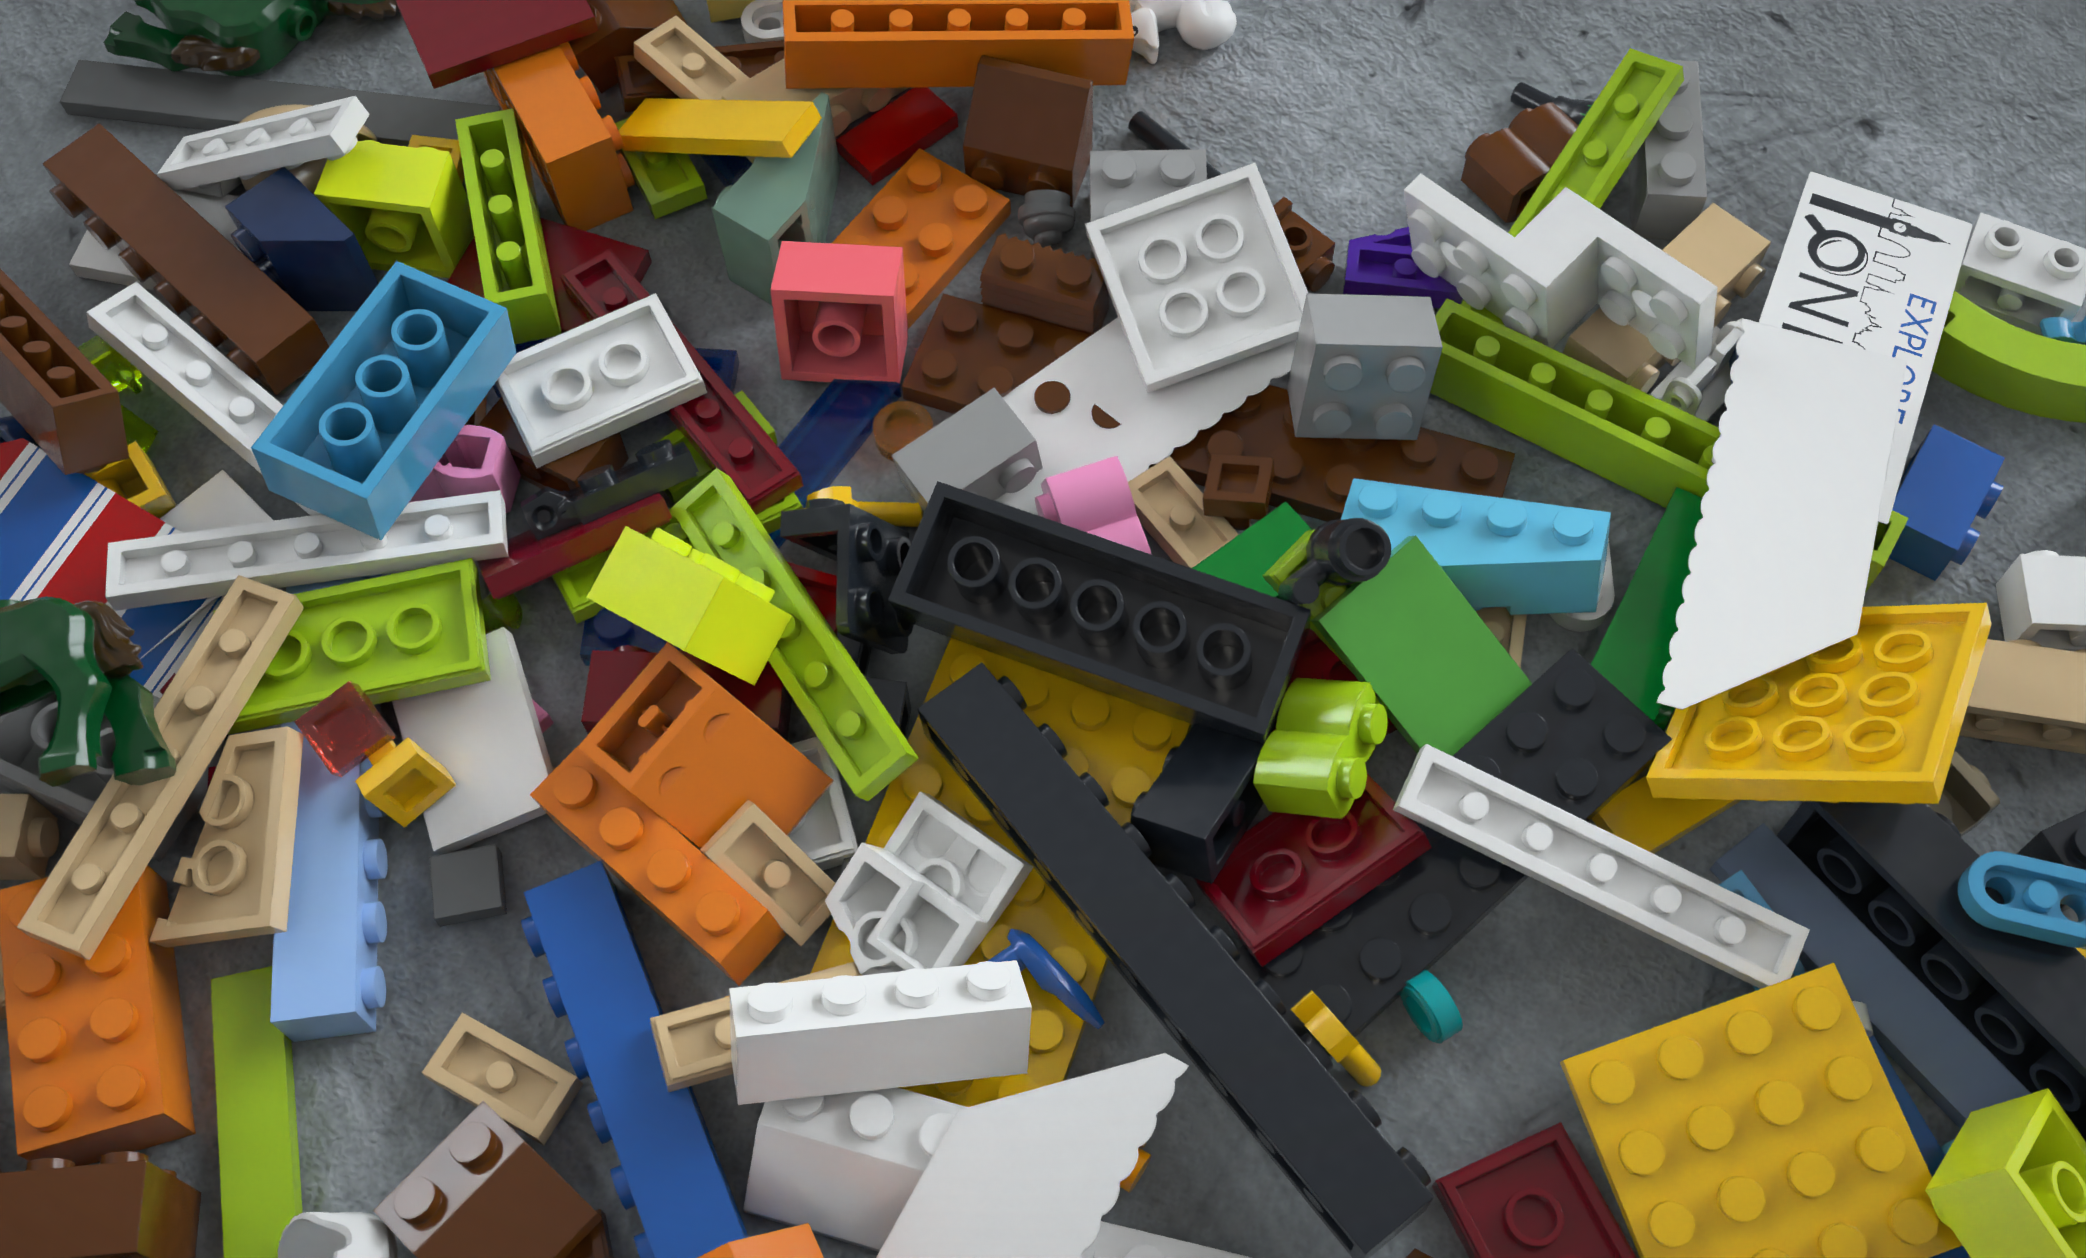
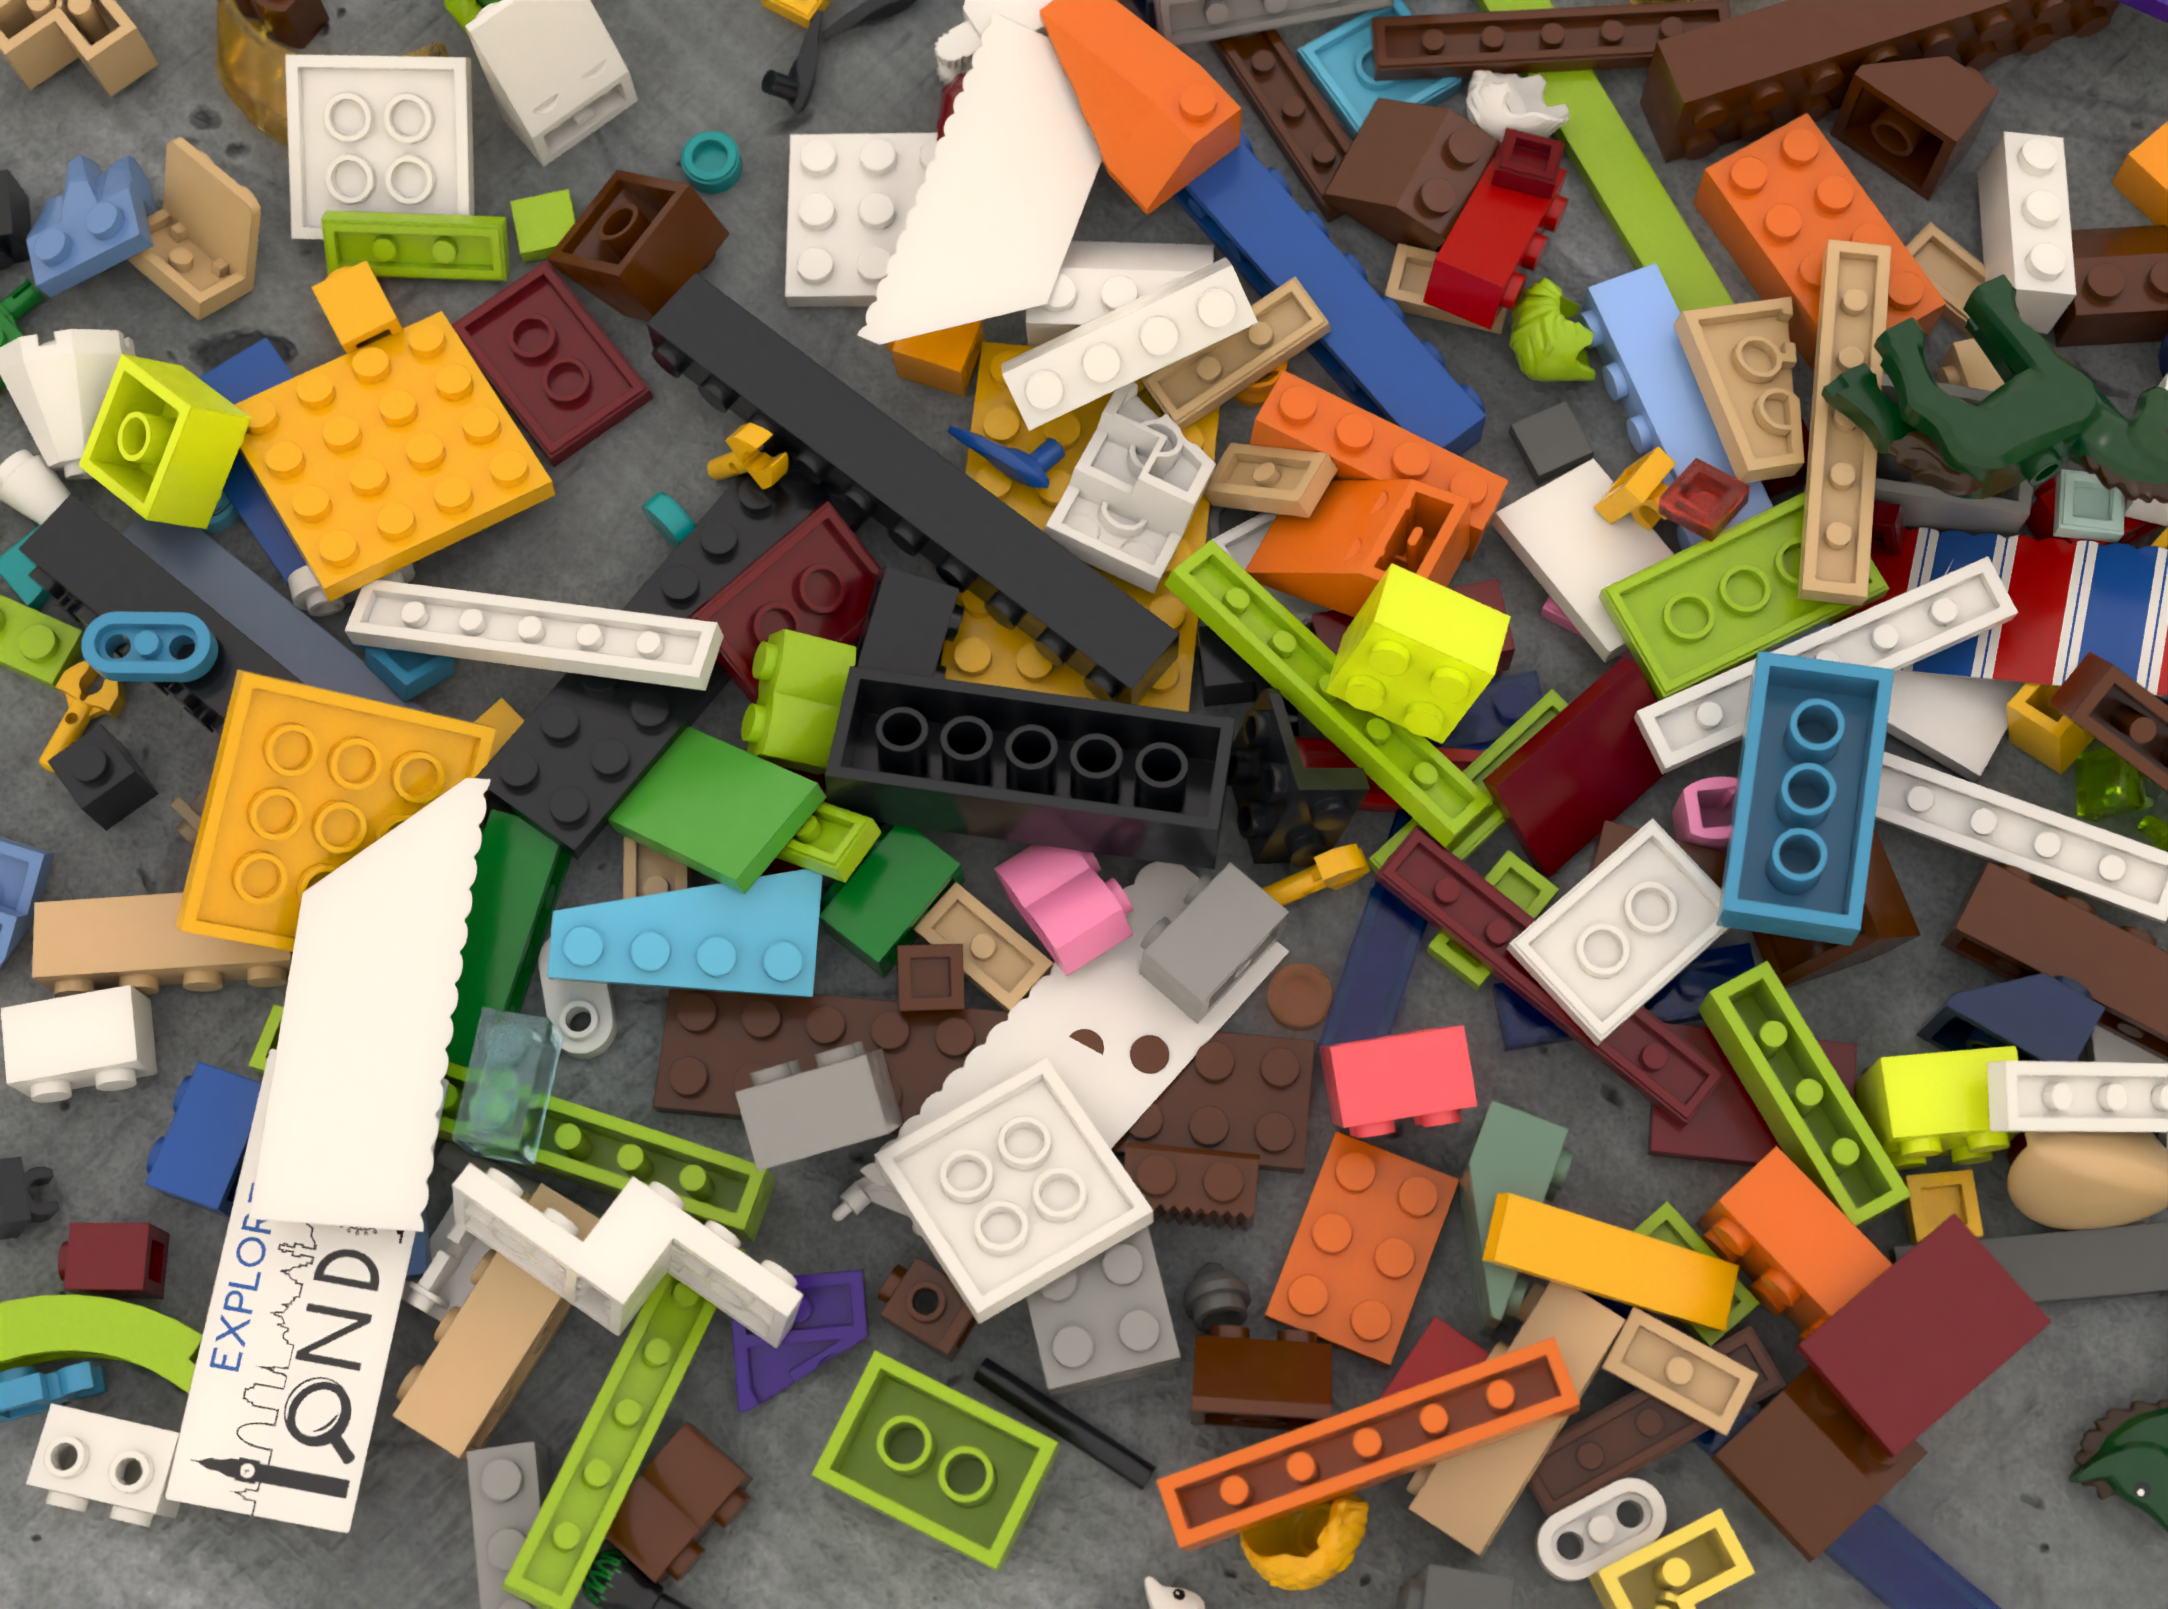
camera: 170 degrees right, 10 degrees up
(353, 1168) = (1528, 163): none -> dark red tile
(423, 980) = (1543, 338): none -> lime hair
(423, 1091) = (1490, 247): none -> red brick
(608, 490) = (1557, 817): black hinge -> none
(1308, 134) = (937, 1461): none -> lime brick
(1338, 555) = (799, 836): black piece -> none
(1656, 421) = (508, 1086): none -> clear light blue brick
(2030, 423) = (114, 1260): none -> dark red brick

